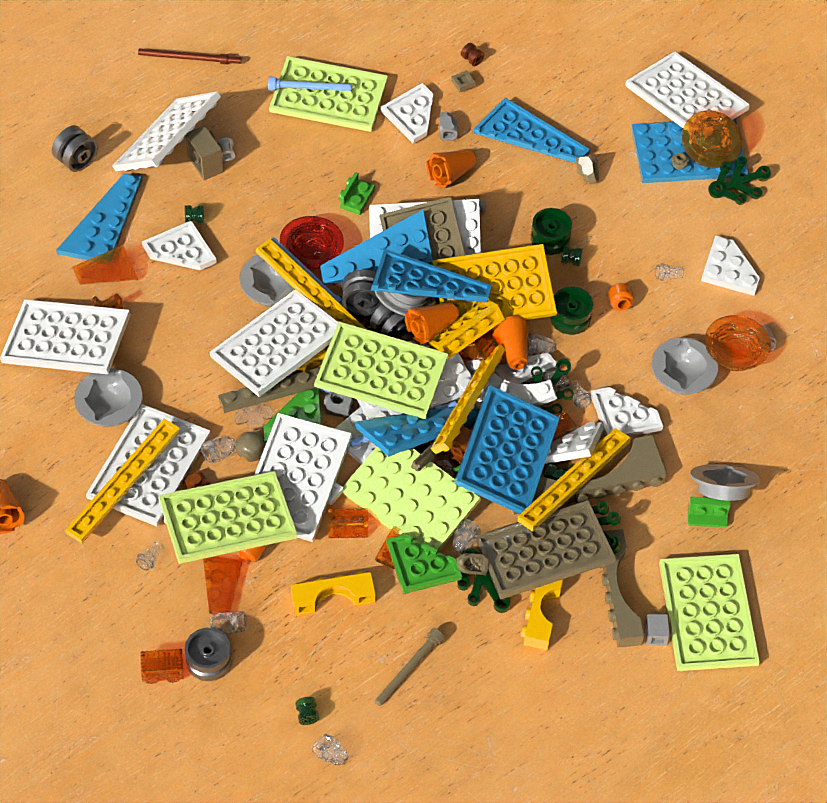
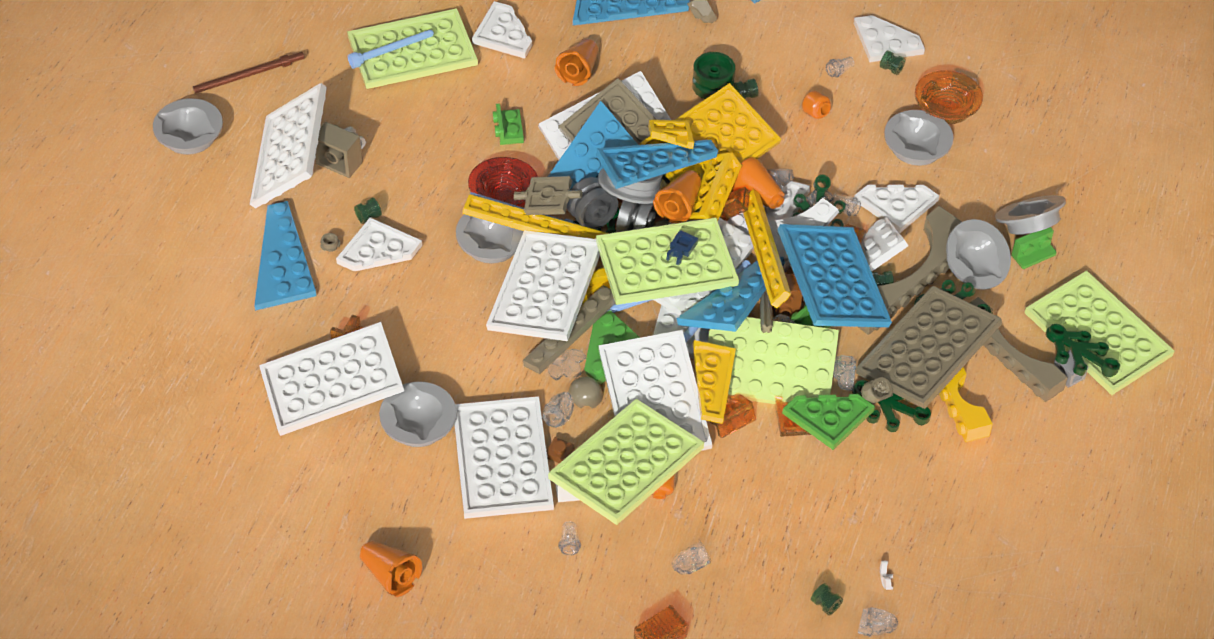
camera: 30 degrees left, 5 degrees down
(74, 148) = (204, 202): flat silver wheel -> none
(105, 268) = (319, 298): clear orange wing -> none
(109, 79) = (188, 125): none -> light grey piece
(122, 481) = (493, 483): yellow plate -> none
(148, 222) = (329, 242): none -> dark tan plate
(208, 654) = (699, 596): flat silver wheel -> none
(221, 582) = (655, 528): clear orange wing -> none
(328, 269) = (548, 195): none -> dark tan plate
(342, 409) = (639, 314): light grey brick -> none
(352, 481) = (713, 378): none -> yellow wing
(356, 587) = (786, 467): yellow arch -> none
(373, 710) = (885, 578): none -> white piece
(397, 363) = (681, 245): none -> dark blue plate
(434, 638) = (887, 475): dark tan piece -> none
(448, 127) = (546, 29): light grey rock -> none
(460, 263) = (672, 131): none -> yellow wing
(573, 310) = (793, 133): dark green wheel -> none
(573, 480) = (906, 276): yellow plate -> none
(649, 493) = (978, 254): none -> light grey piece
(672, 617) = (1059, 336): none -> dark green plant
(716, 290) = (892, 62): none -> clear green wheel

